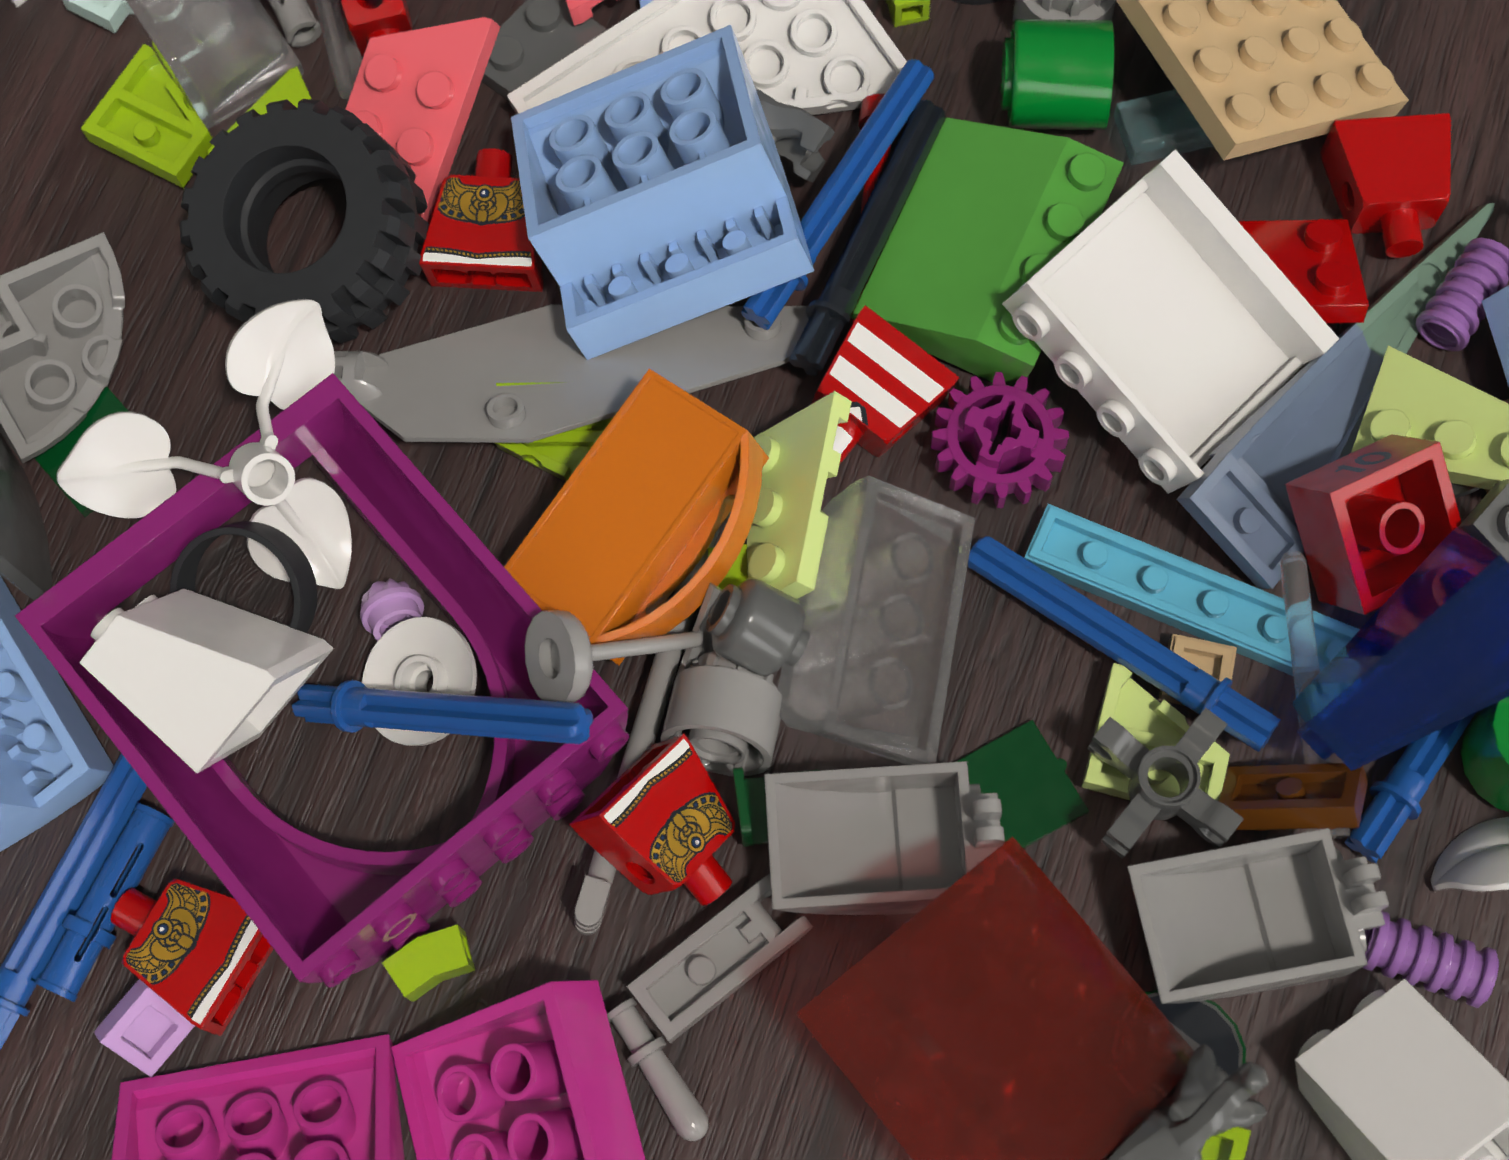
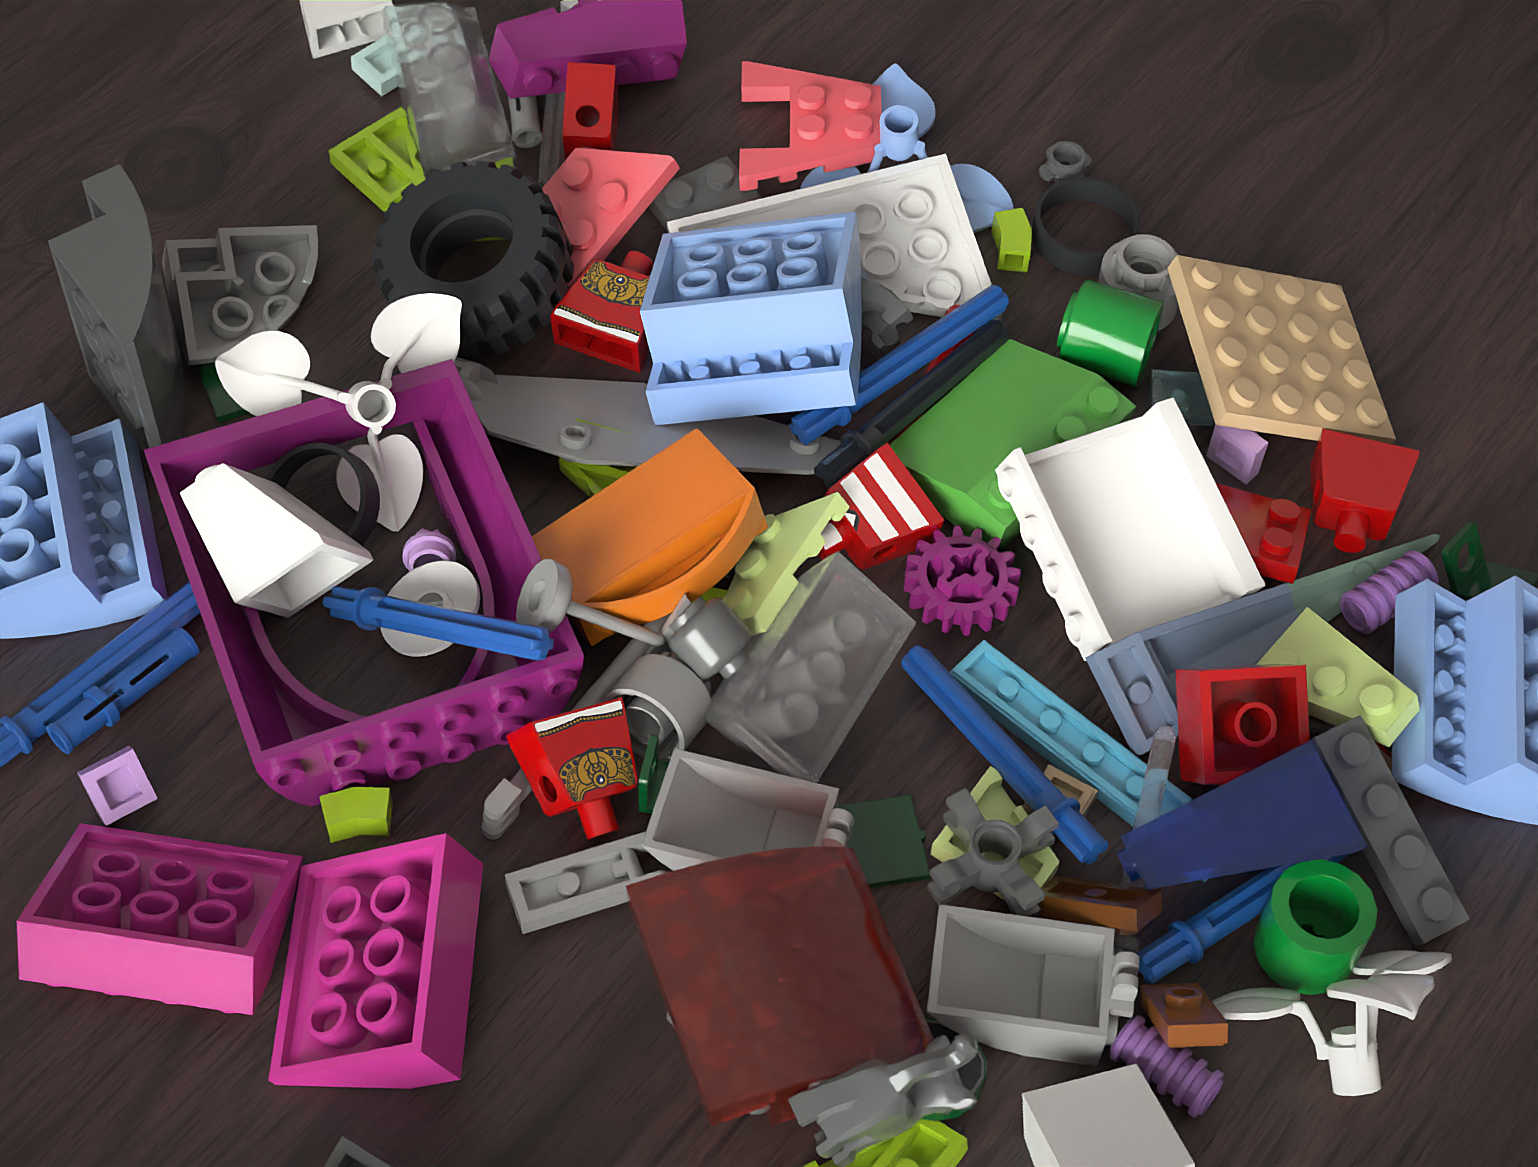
camera: 10 degrees right, 15 degrees down
(193, 950) = (182, 742): torso -> none
(670, 1089) = (502, 934): light grey piece -> none
(1244, 176) = (1237, 451): none -> lavender plate
(1436, 900) = (1184, 1015): none -> dark orange plate

